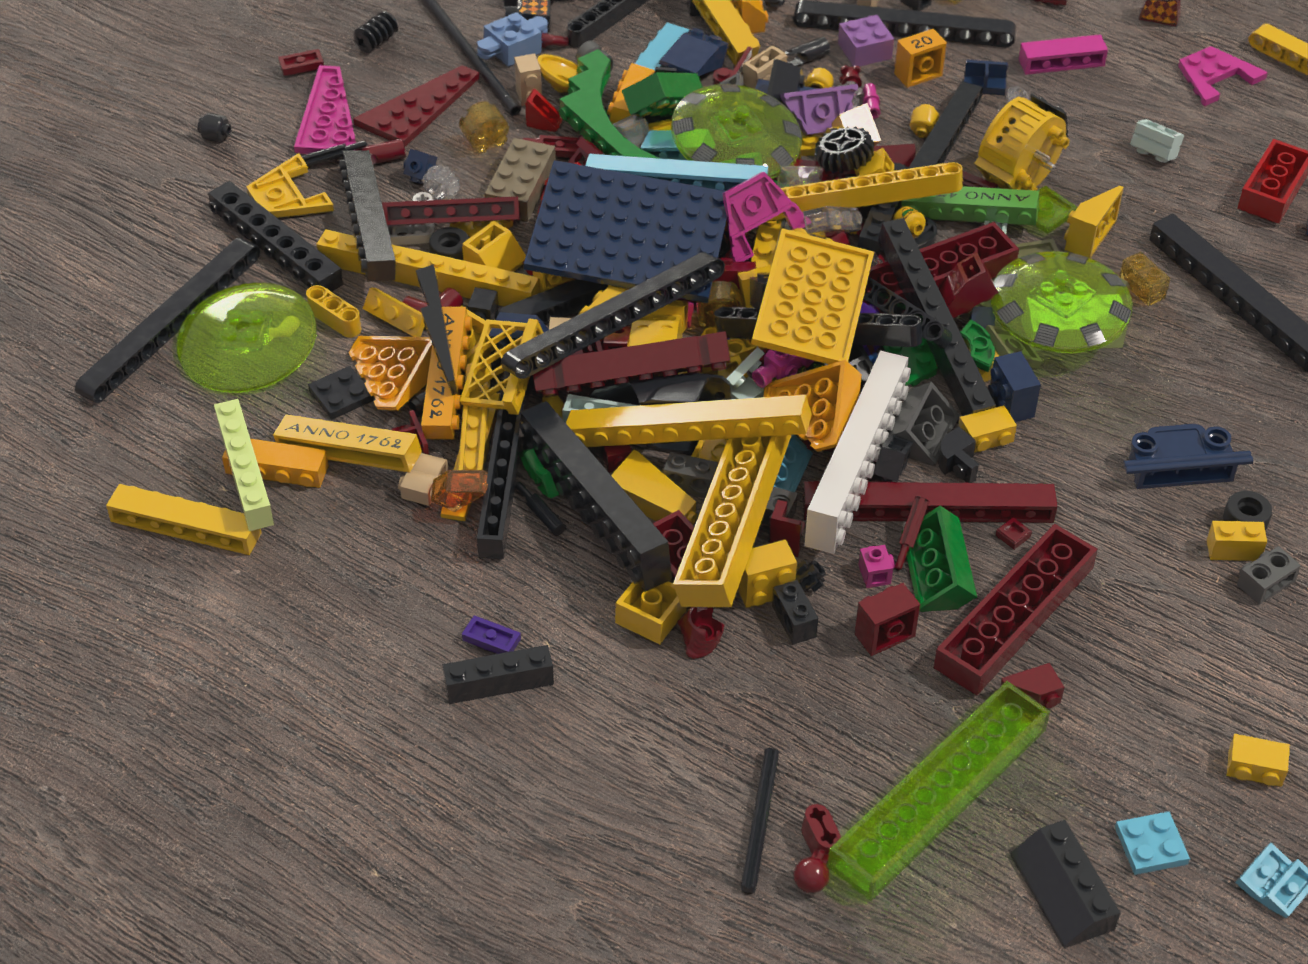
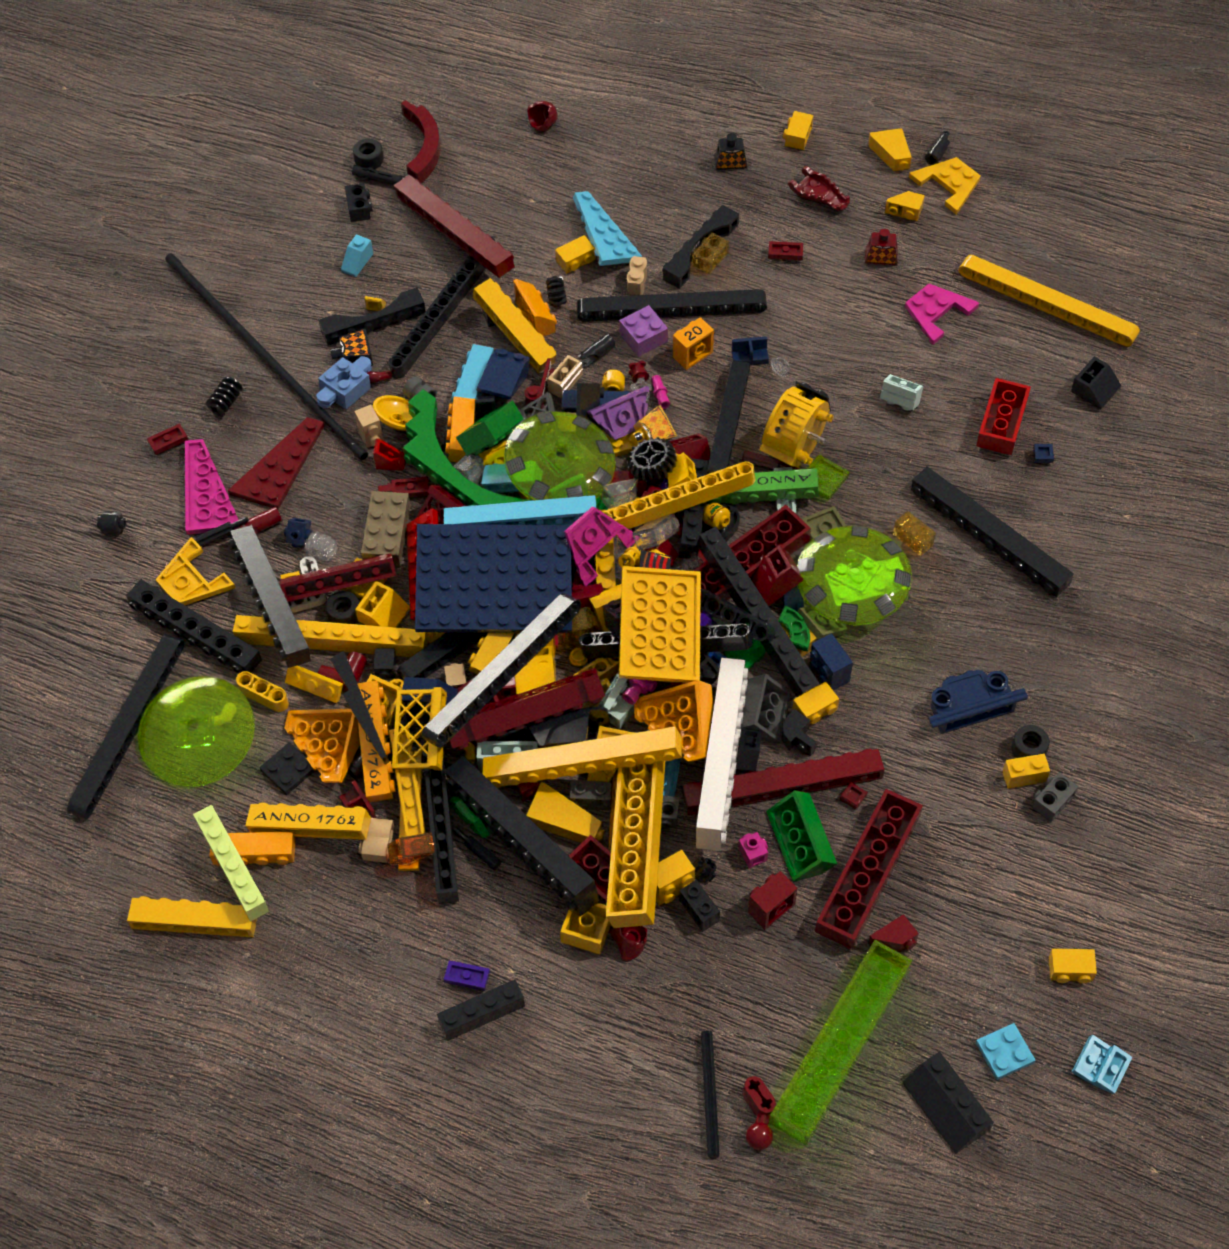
camera: 10 degrees left, 10 degrees up
(484, 126) = (343, 482): clear yellow brick -> none
(786, 528) = (677, 834): dark red panel -> none
(911, 528) = (775, 811): dark red axle -> none
(923, 120) = (708, 405): yellow head -> none
(1063, 54) = (809, 314): dark pink brick -> none
(1092, 222) = (863, 488): yellow slope -> none

